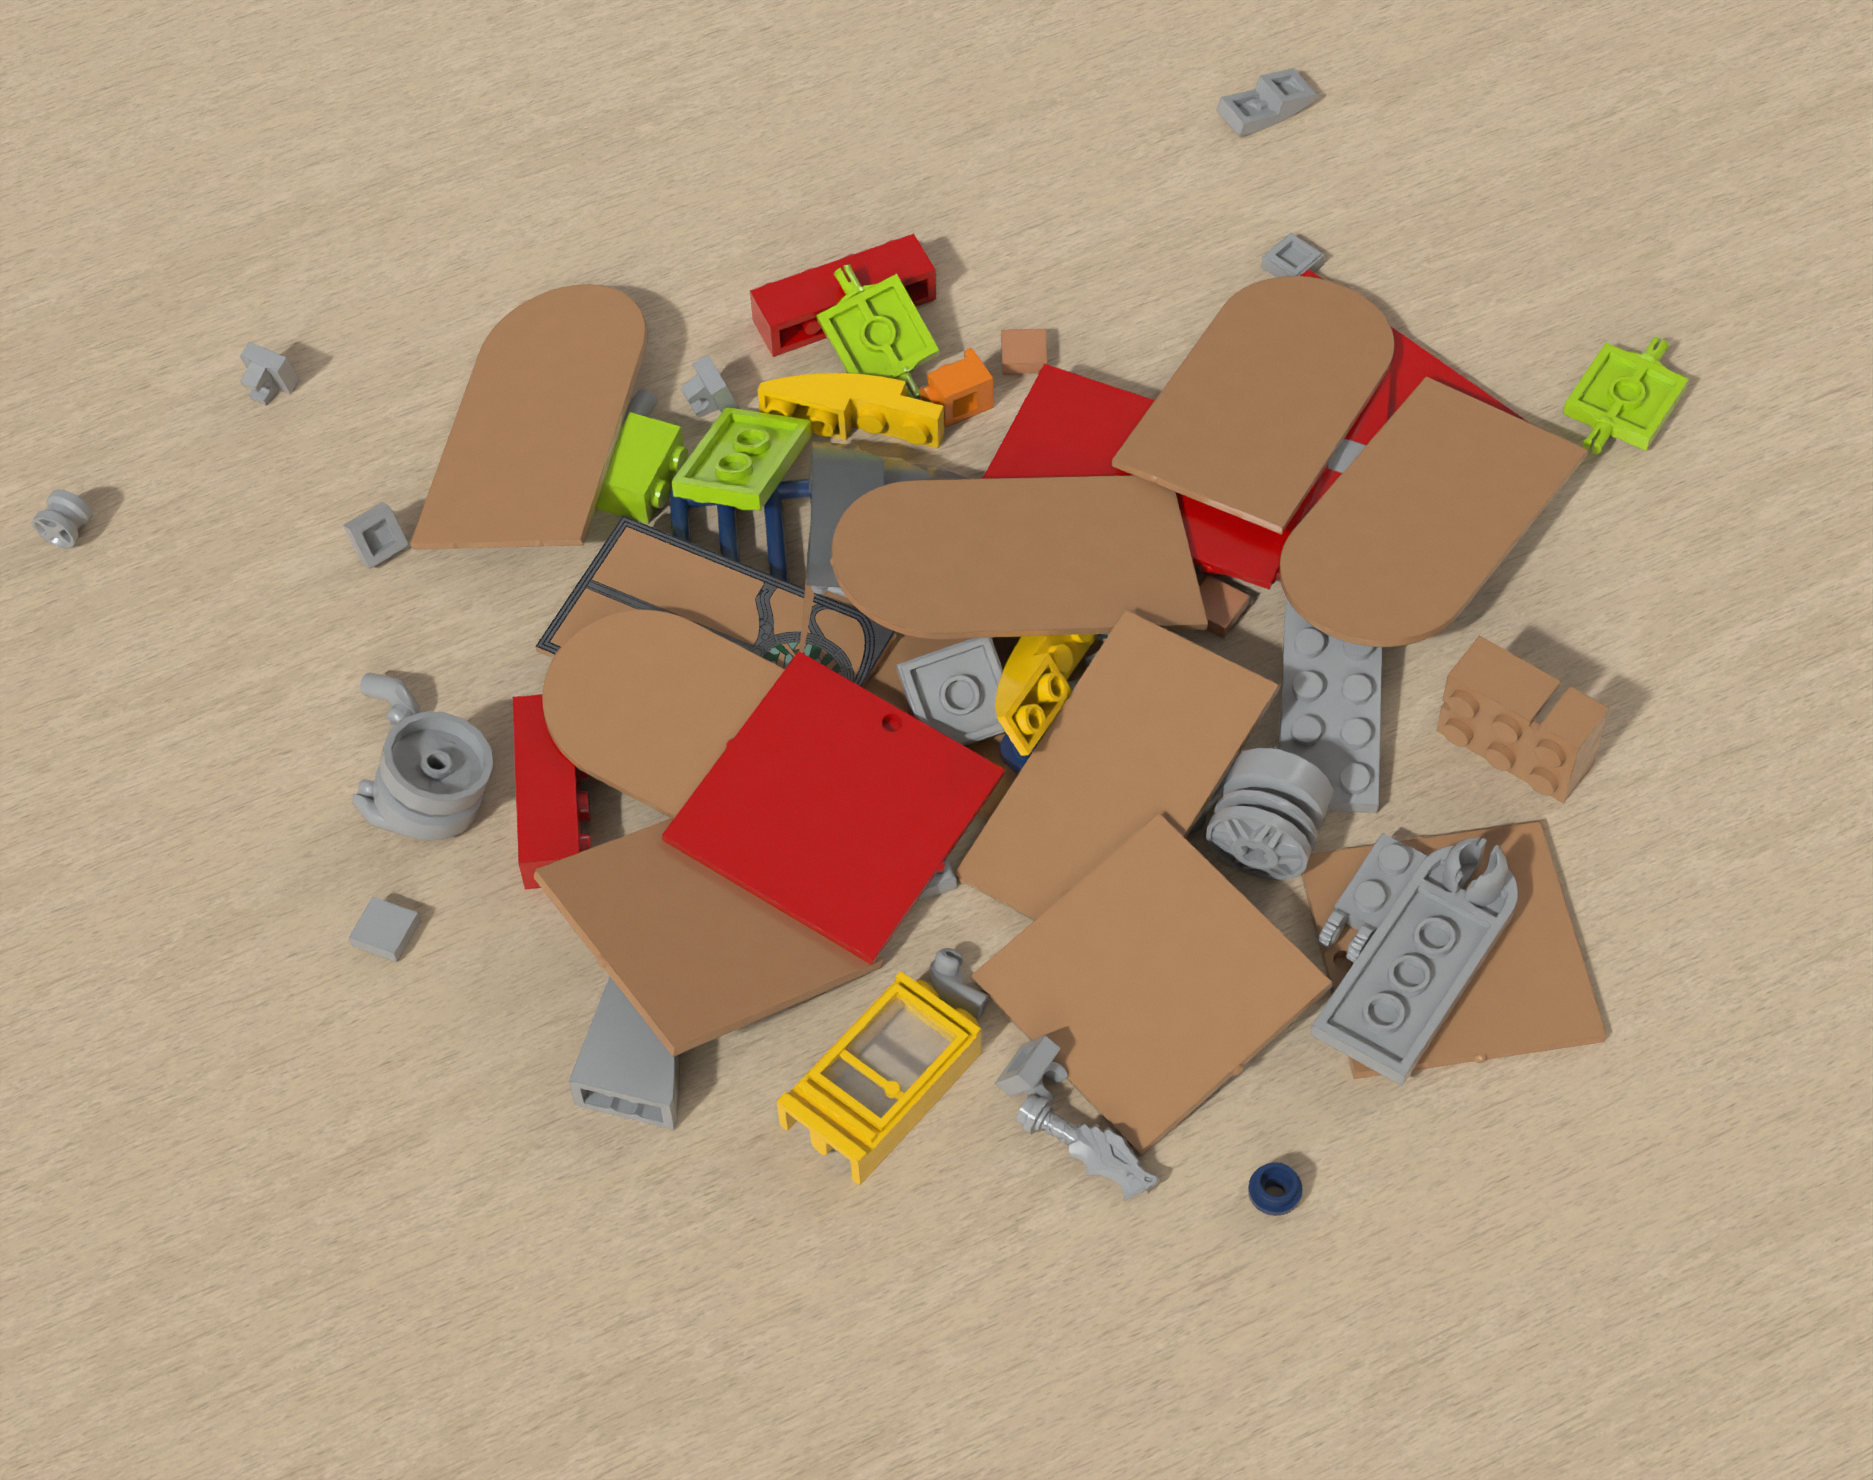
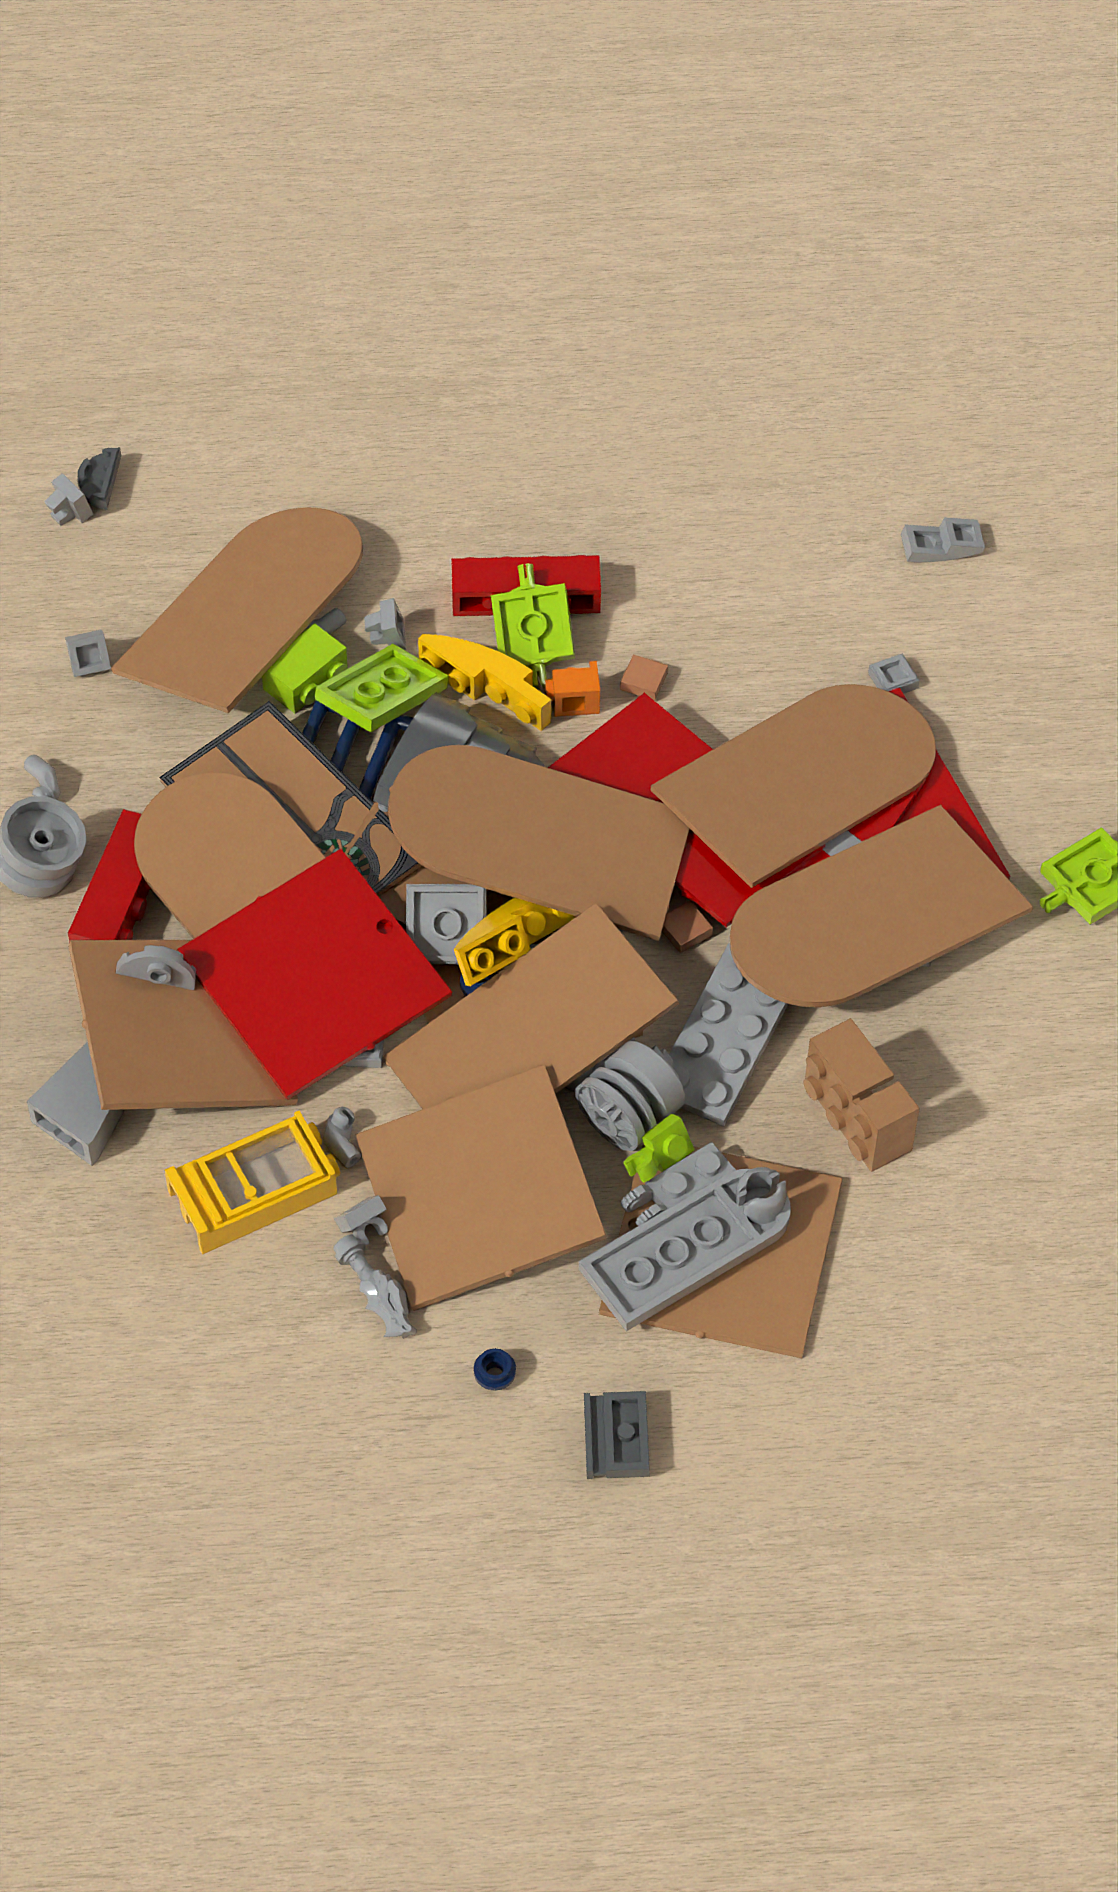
camera: 20 degrees right, 0 degrees up
(287, 334) = (98, 477): none -> dark grey plate
(655, 862) = (159, 966): none -> light grey plate
(1336, 858) = (664, 1147): none -> lime plate
(1455, 1211) = (616, 1435): none -> dark grey plate

